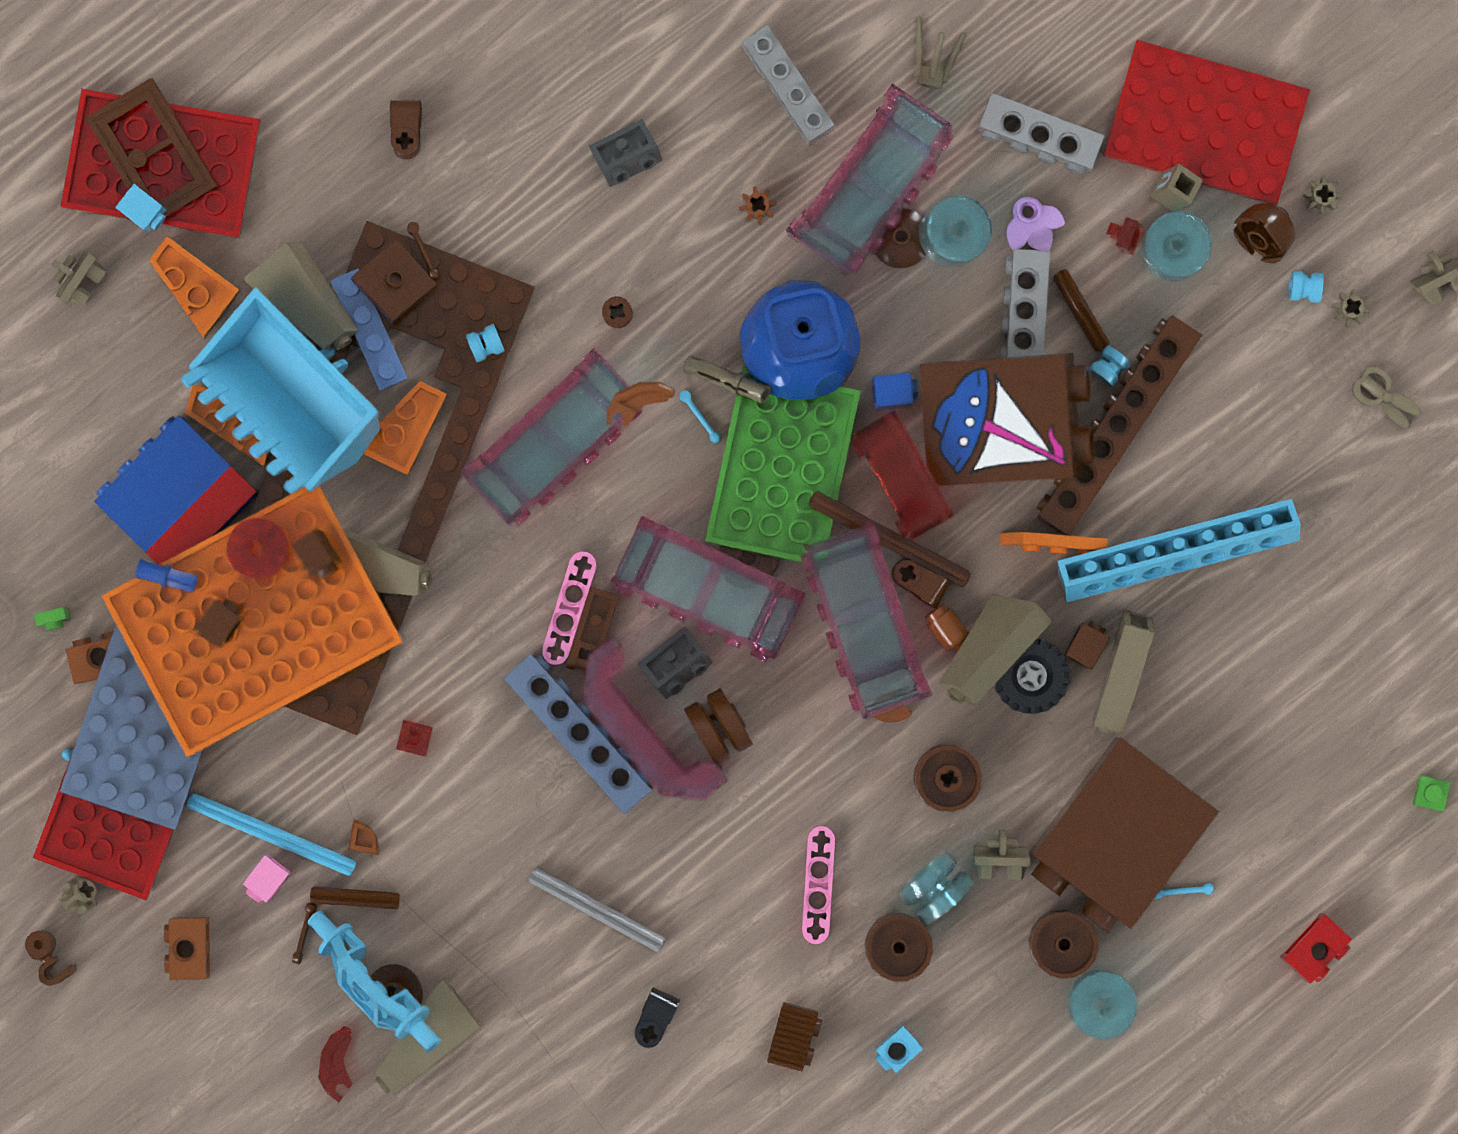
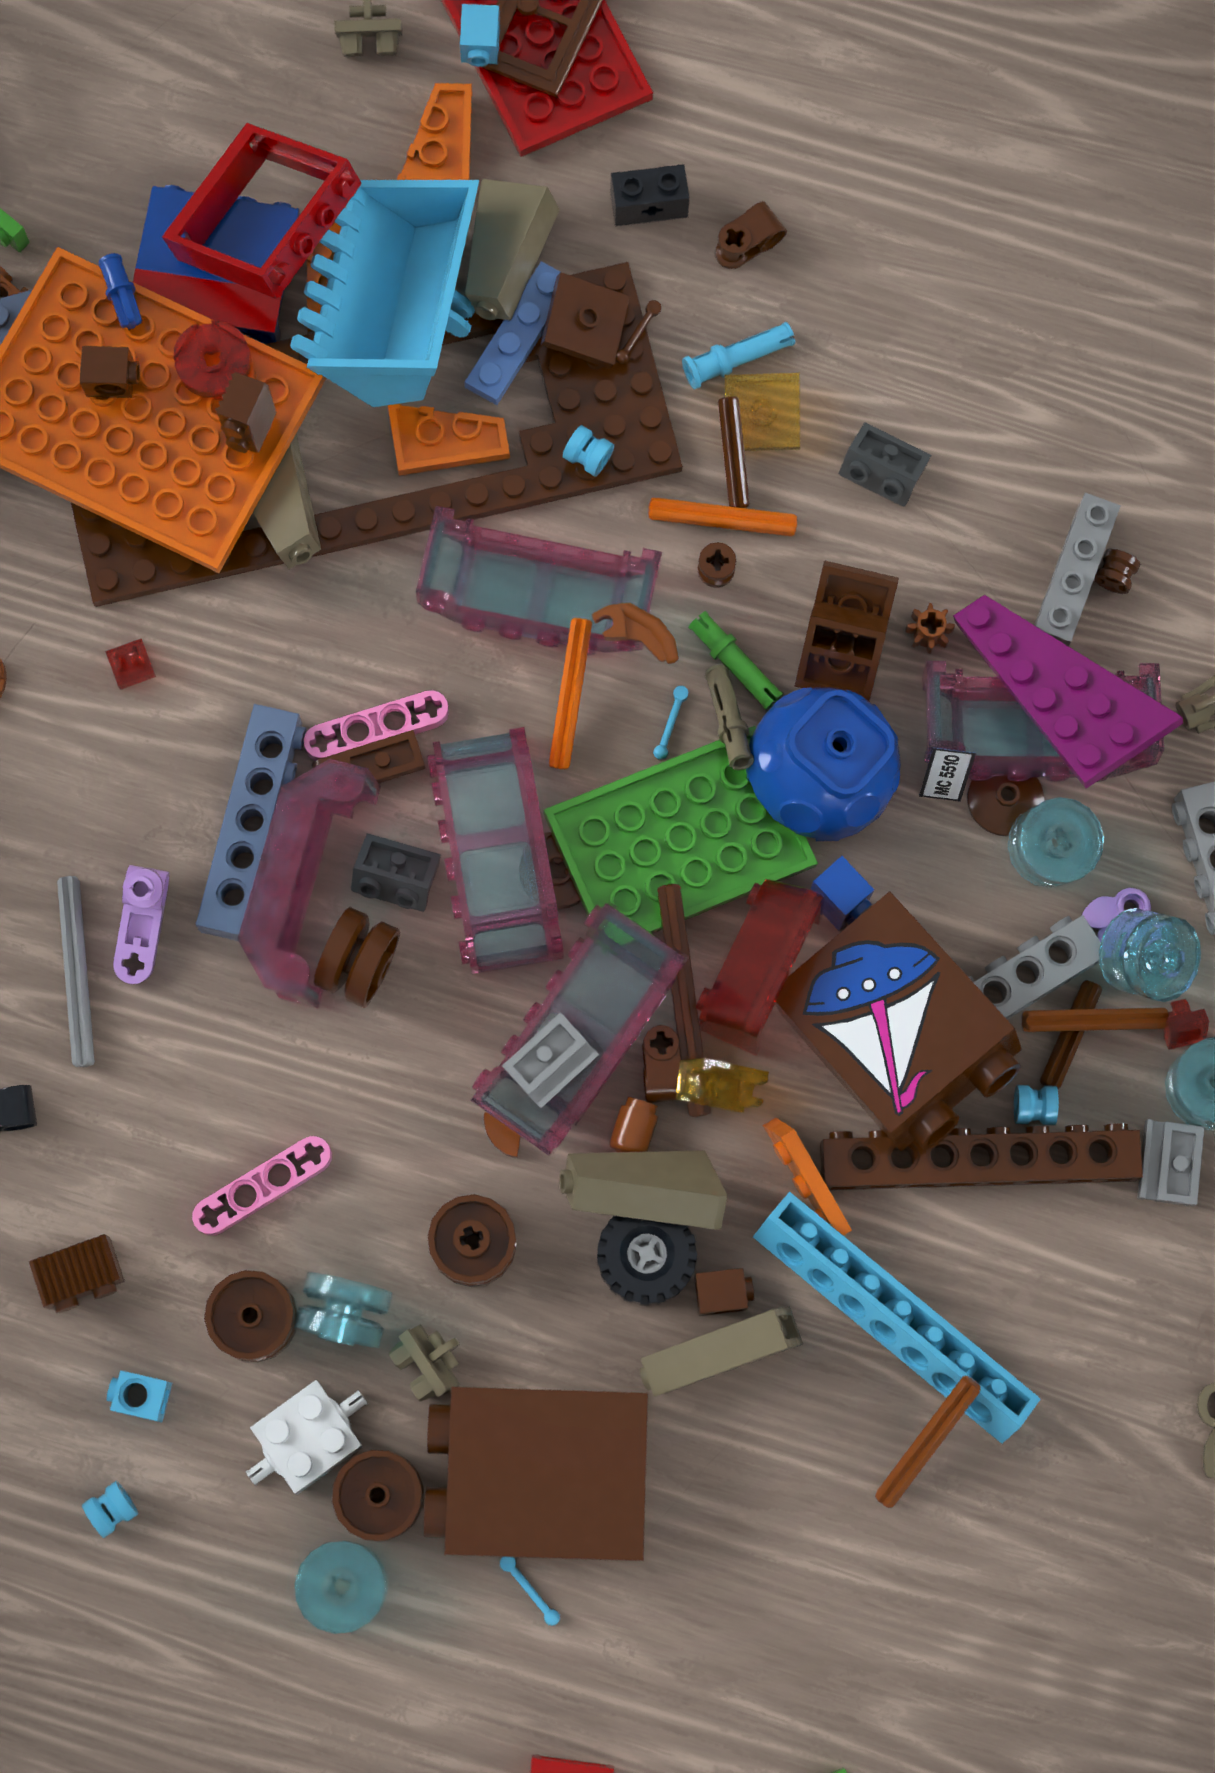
camera: 55 degrees right, 10 degrees down
(133, 456) = (228, 181): none -> red window
(331, 173) = (649, 195): none -> black brick
(480, 208) = (722, 359): none -> medium azure pin
(534, 207) = (768, 409): none -> clear yellow plate
(550, 247) = (733, 452): none -> reddish brown axle
(586, 284) = (722, 516): none -> orange axle
(596, 847) = (140, 921): none -> lavender piece
(638, 469) = (570, 693): none -> orange axle
(689, 346) = (725, 649): none -> bright green pin
(724, 262) = (846, 629): none -> reddish brown bracket
(805, 56) = (1117, 571): none -> reddish brown wheel
(865, 269) = (947, 774): none -> sticker
(871, 651) = (550, 1060): none -> light grey plate
(883, 154) = (1075, 703): none -> magenta wing
(951, 1109) = (117, 1503): none -> medium azure wheel
(959, 556) = (719, 1084): none -> clear yellow hinge
(994, 963) = (306, 1437): none -> white plate
(1069, 226) = (1150, 954): none -> clear light blue wheel
(1083, 290) = (1094, 1019): none -> dark orange axle
(1204, 308) = (1171, 1162): none -> light grey plate
(1268, 586) = (928, 1441): none -> dark orange axle

